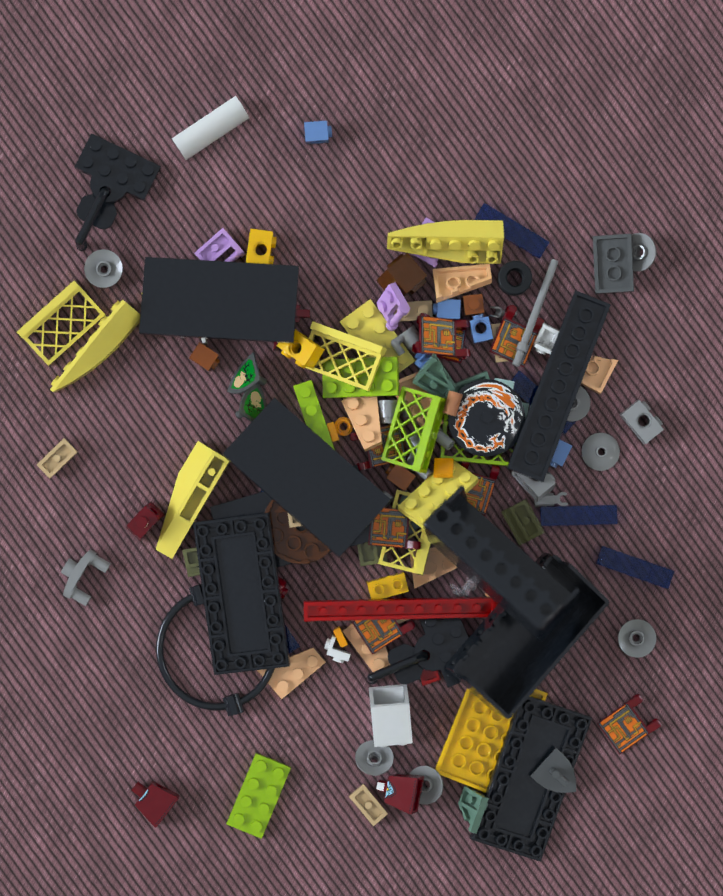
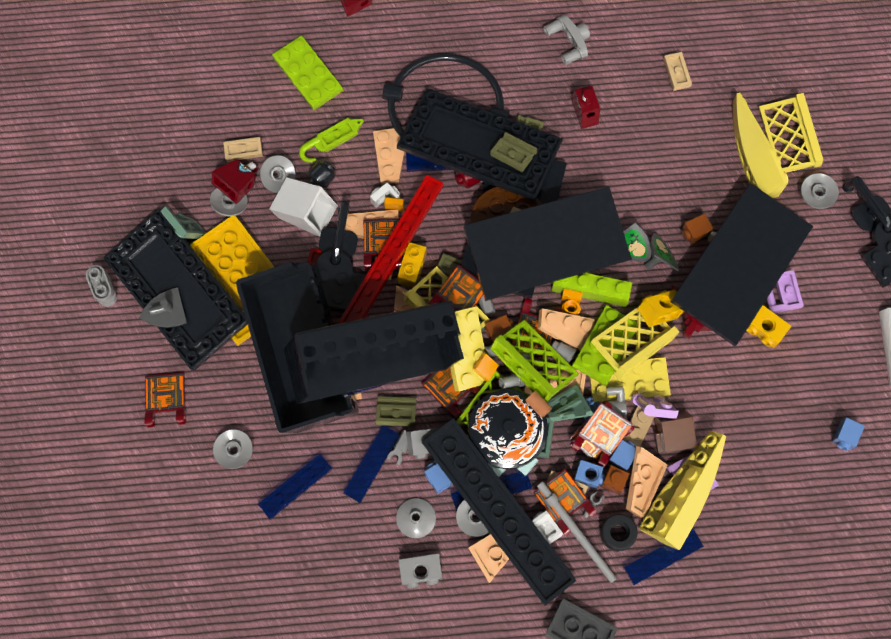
camera: 120 degrees right, 15 degrees down
(190, 493) = (586, 155): light yellow wedge -> none
(236, 557) = (513, 152): none -> olive plate
(310, 732) = (332, 137): none -> lime plate
(350, 718) = (321, 174): none -> black head
(567, 844) = (101, 286): none -> light grey brick

